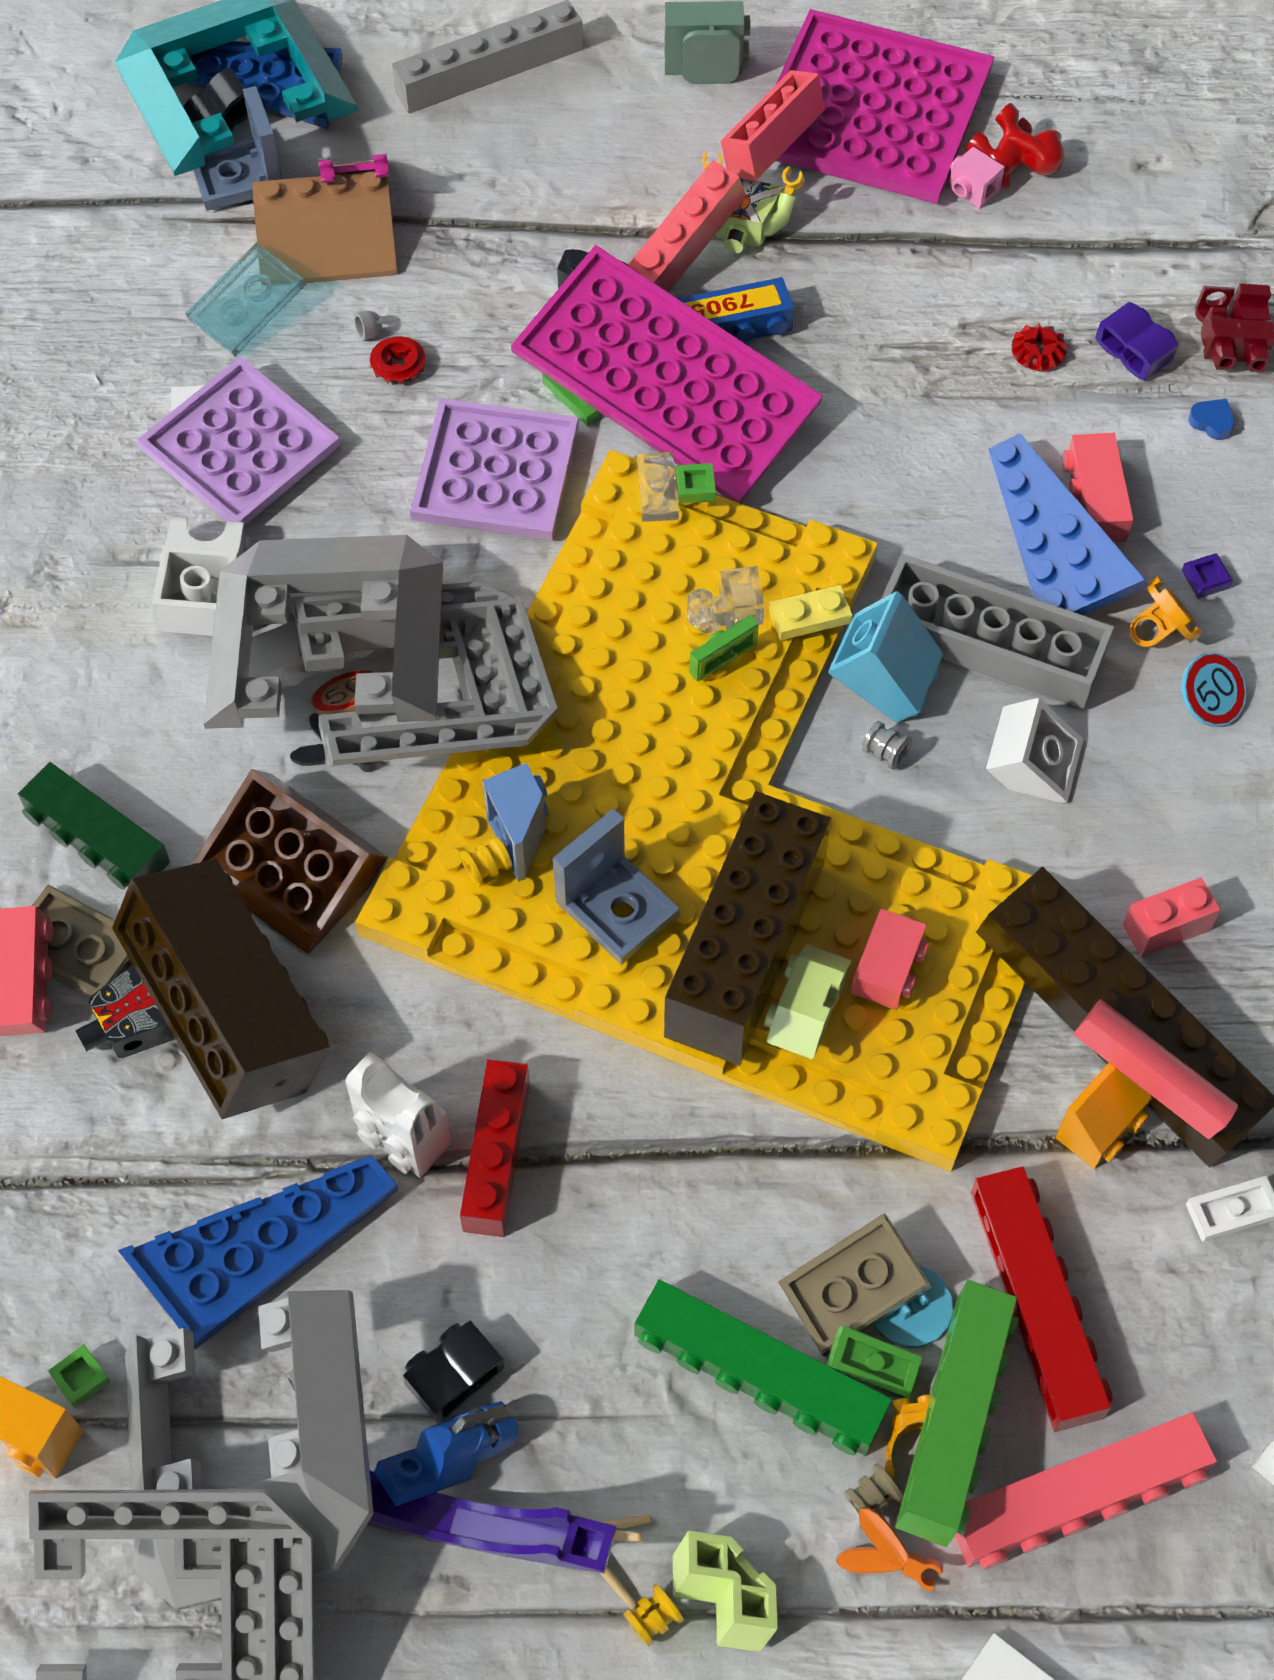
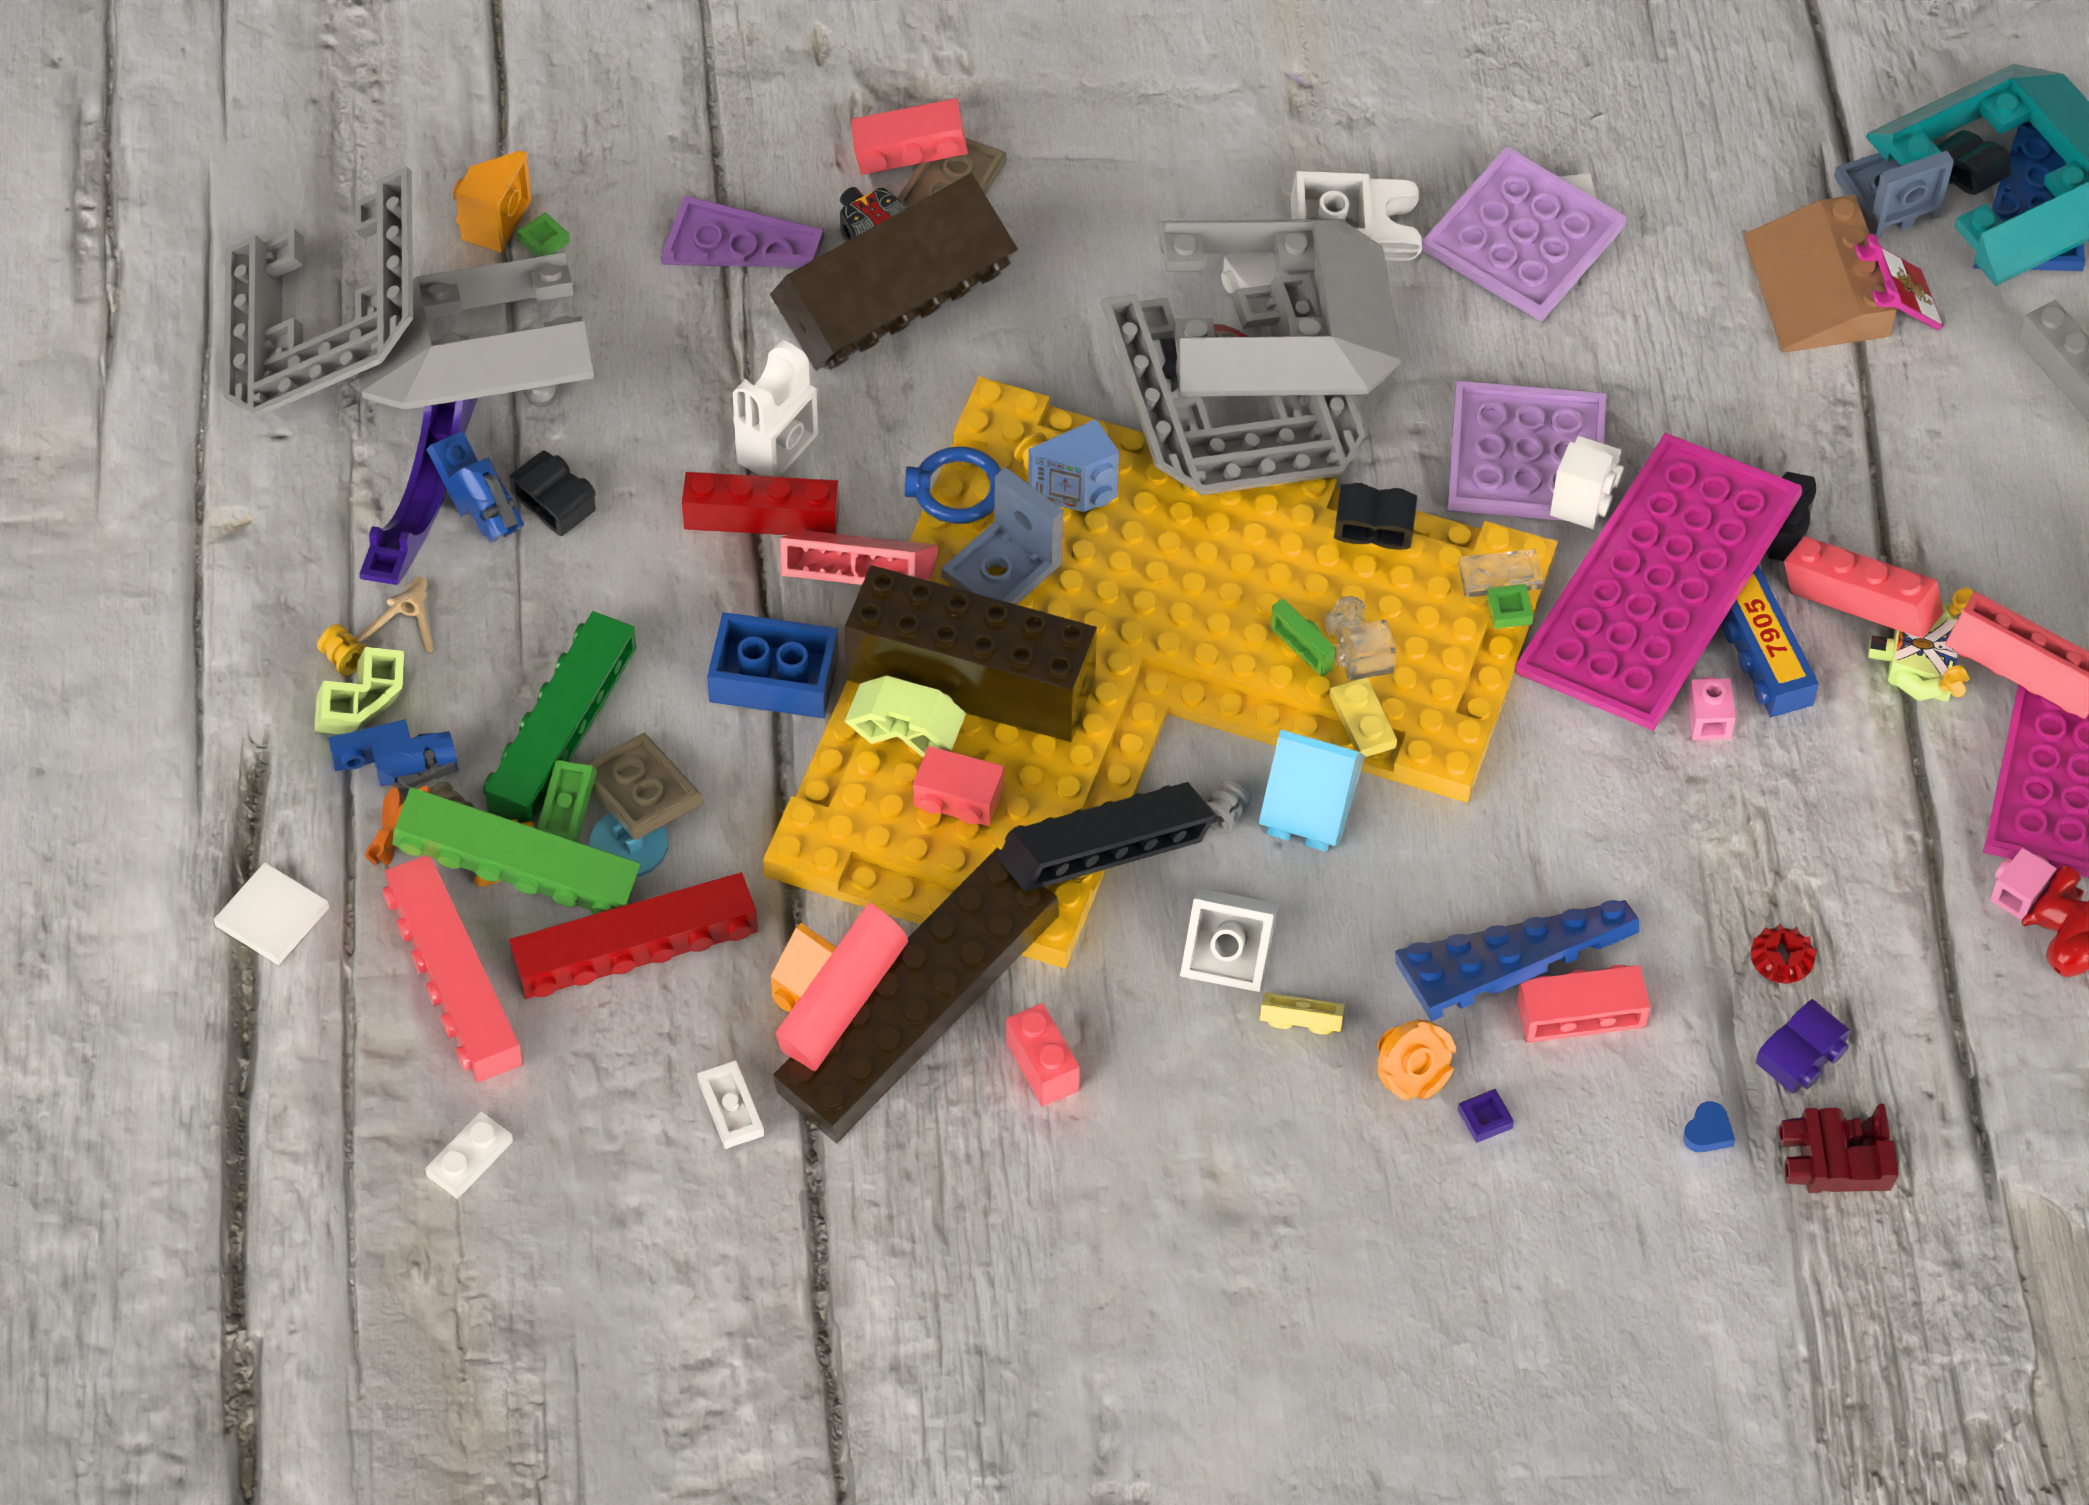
camera: 85 degrees right, 5 degrees down
(91, 827) = (1064, 176): dark green brick -> none
(115, 1169) = (729, 236): none -> medium lavender wing
(242, 1253) = (658, 336): blue wing -> none
(245, 299) = (1710, 217): clear light blue tile -> none
(290, 859) = (1045, 325): reddish brown slope -> none
(366, 324) = (1698, 326): light grey hinge -> none
(399, 348) = (1658, 345): red gear -> none
(498, 980) = (918, 484): none -> blue piece
(556, 411) = (1585, 482): none -> white brick
(584, 577) = (1375, 516): none -> black brick
(588, 1046) = (849, 557): none -> coral brick
(711, 1140) = (773, 665): none -> blue brick
(796, 357) = (1711, 708): none -> bright pink brick
(805, 1549) = (395, 753): none -> blue plate
(959, 828) = (1105, 836): none -> black brick
(1004, 631) = (1369, 892): light grey brick -> none
(1113, 700) = (1318, 1015): none -> light yellow plate
(1213, 689) = (1325, 1105): piece -> none

